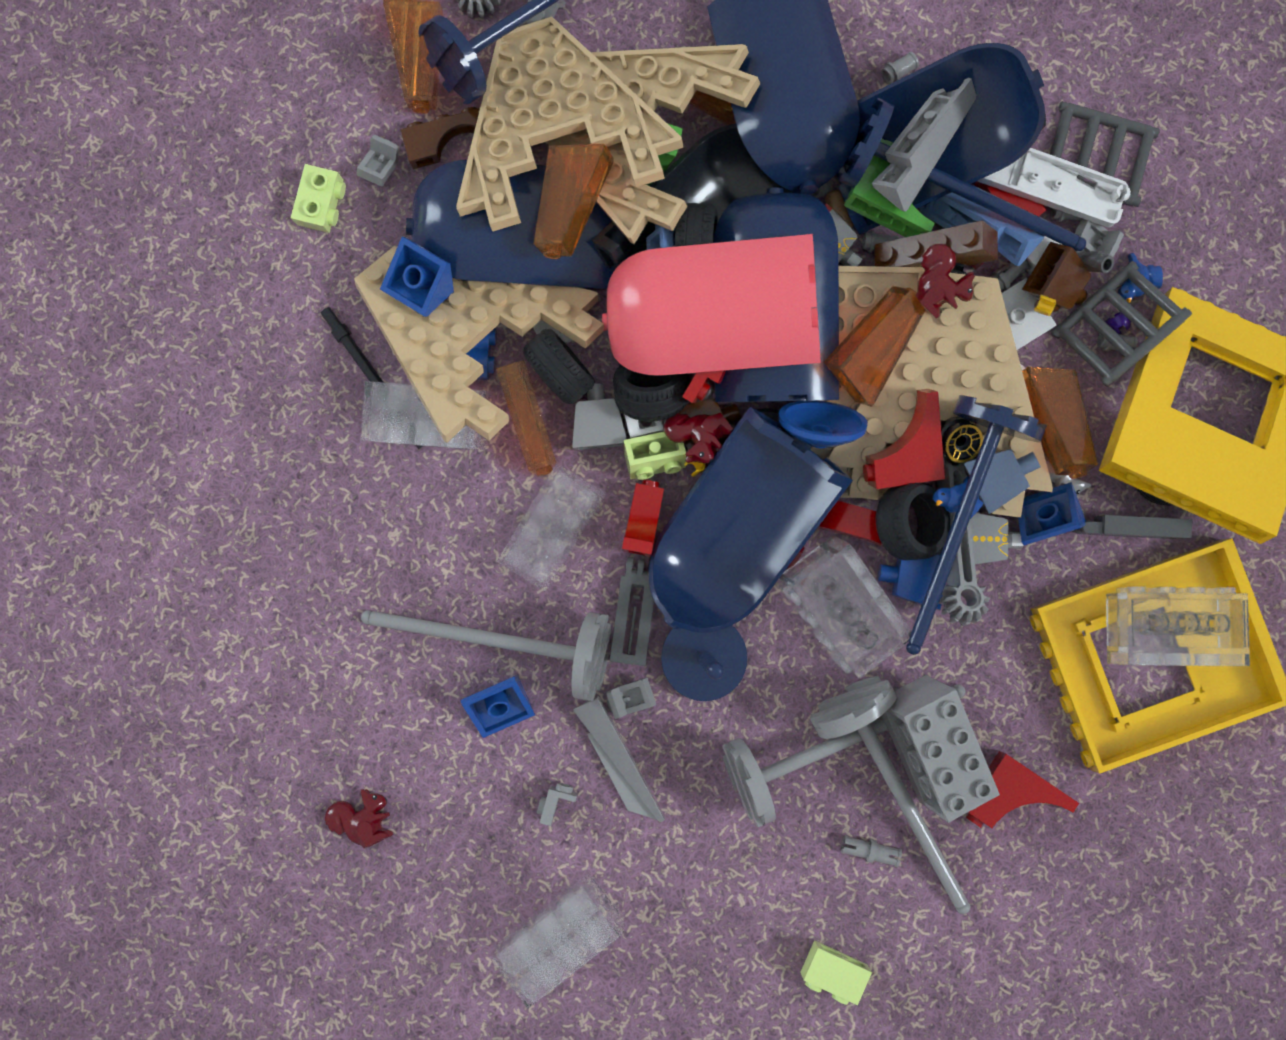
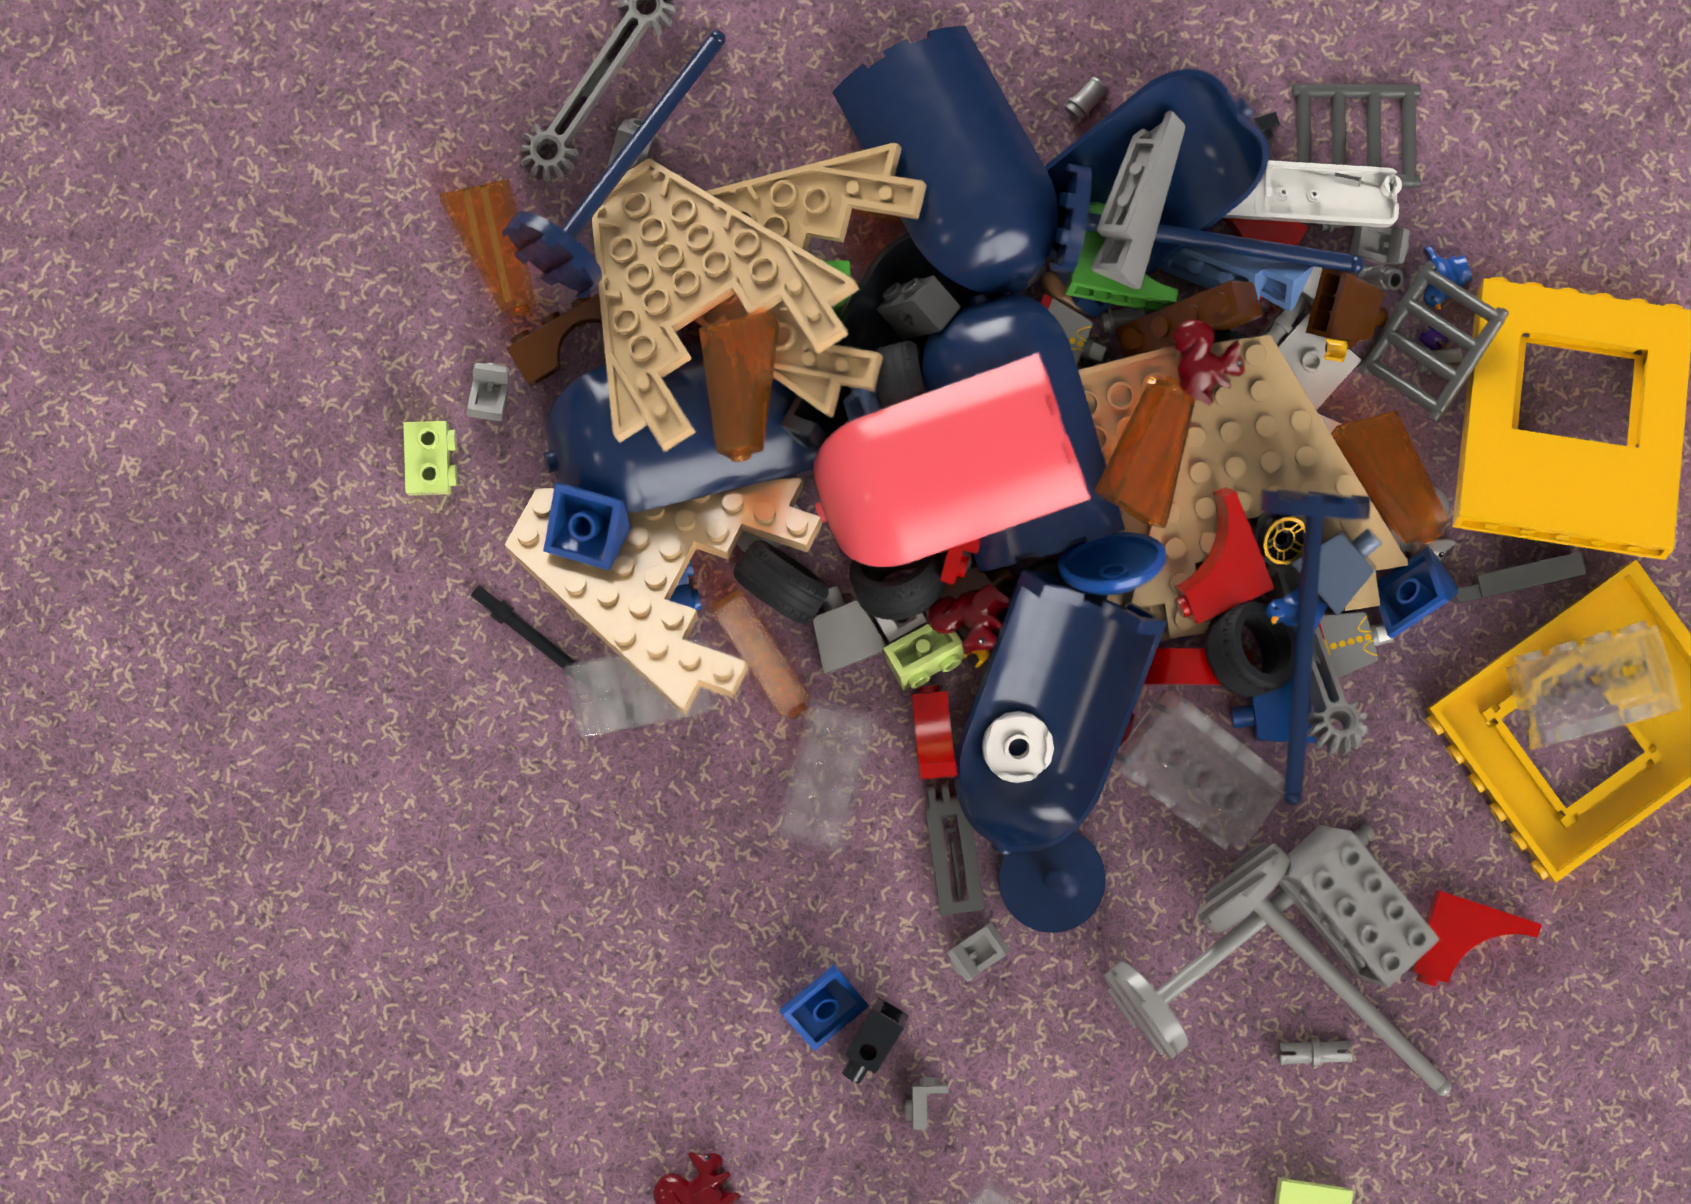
camera: 20 degrees left, 0 degrees up
(533, 739) = (879, 1029): none -> black torso
(588, 655) = (915, 916): light grey piece -> none
(618, 759) = (983, 1030): light grey wedge -> none
(701, 531) = (1003, 732): none -> white tile
(726, 182) = (917, 307): none -> dark grey brick

